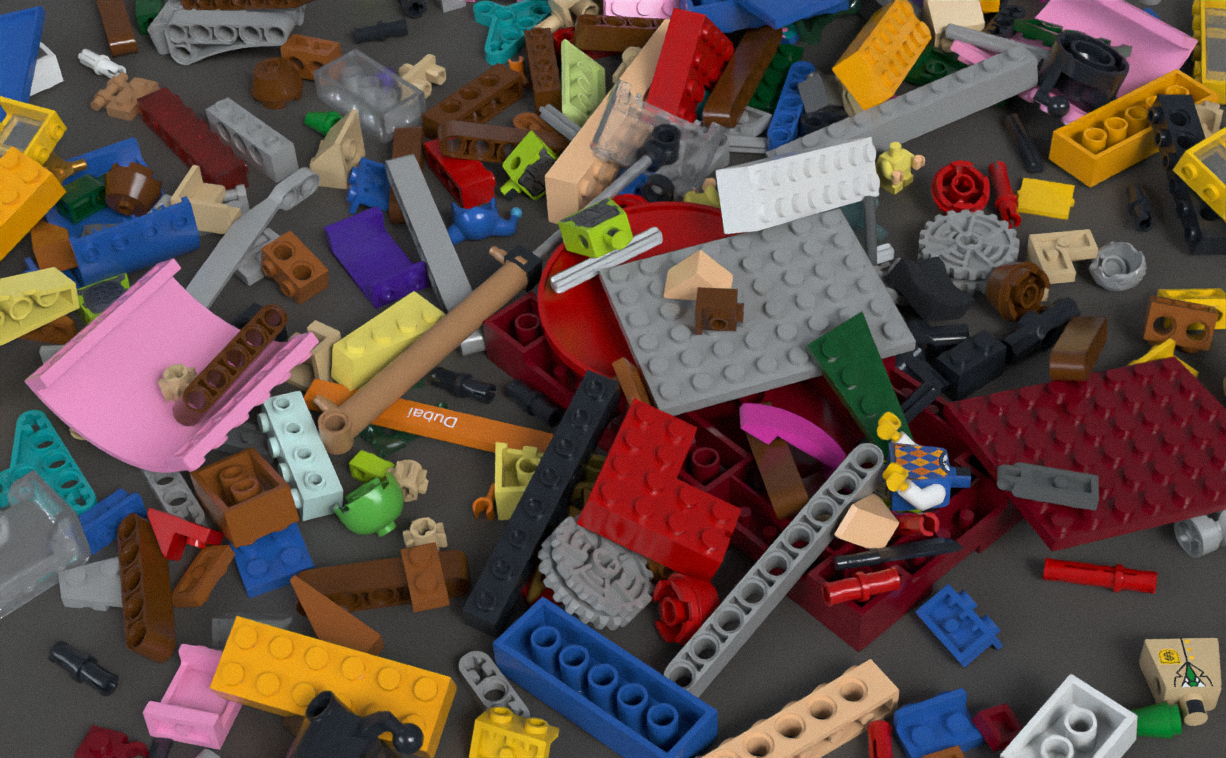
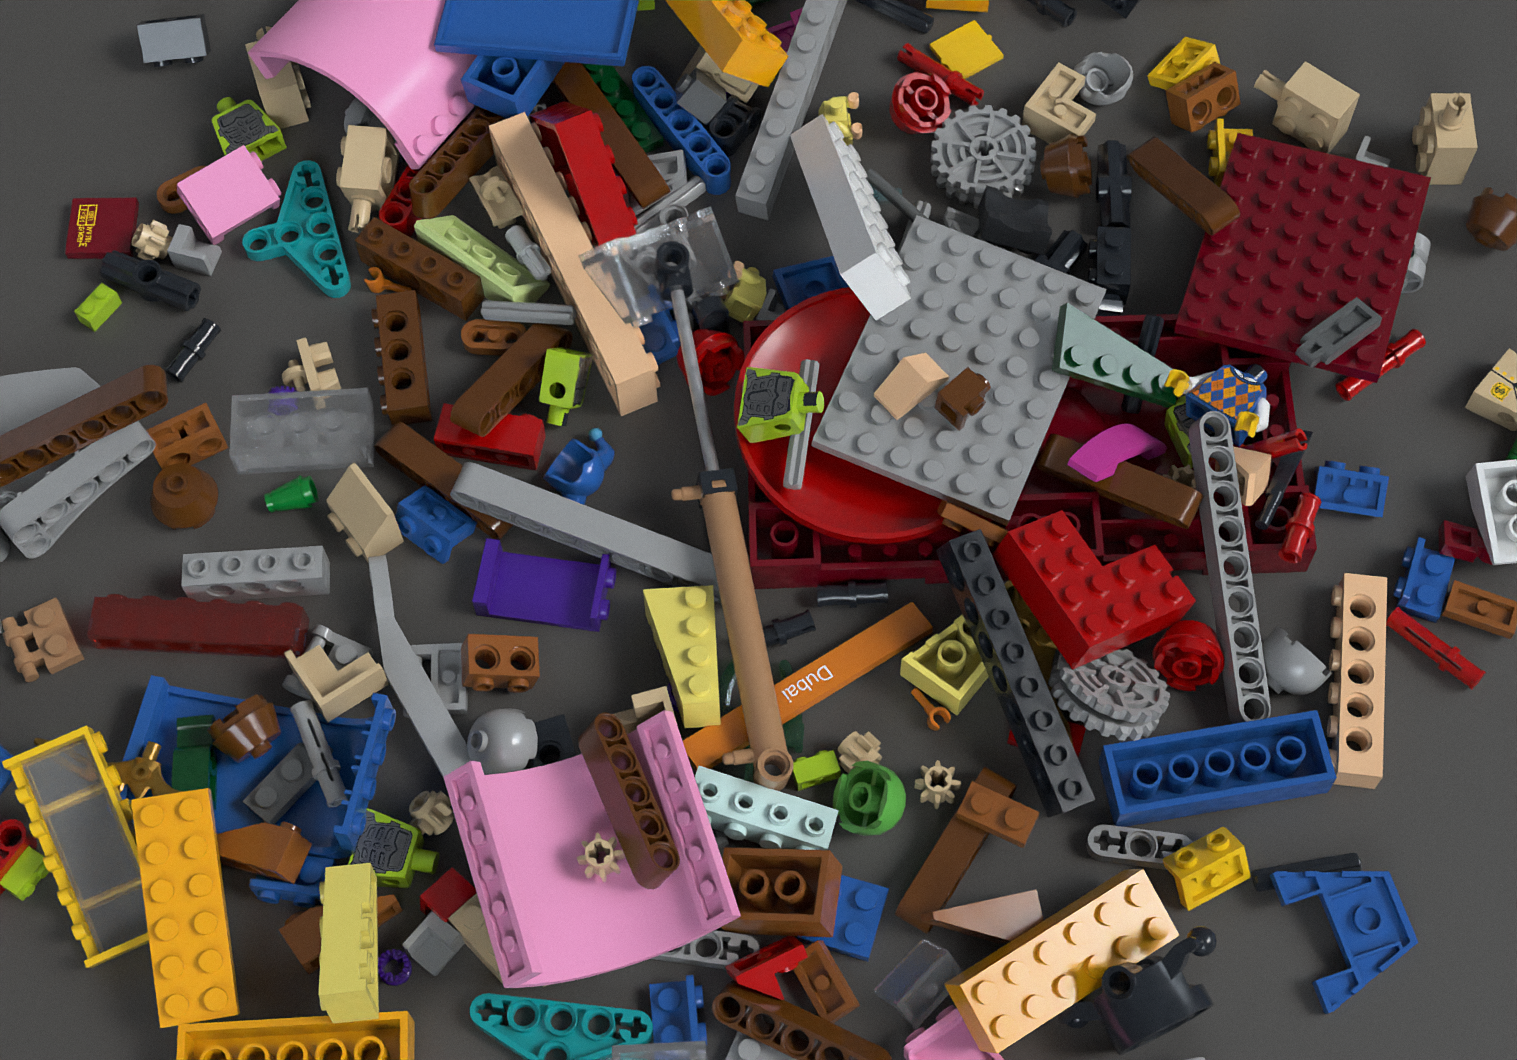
camera: 50 degrees left, 20 degrees up
(25, 359) = (399, 957): none -> dark purple bush
(230, 295) = (502, 741): none -> light grey cylinder
(751, 680) = (1291, 665): none -> light grey cylinder

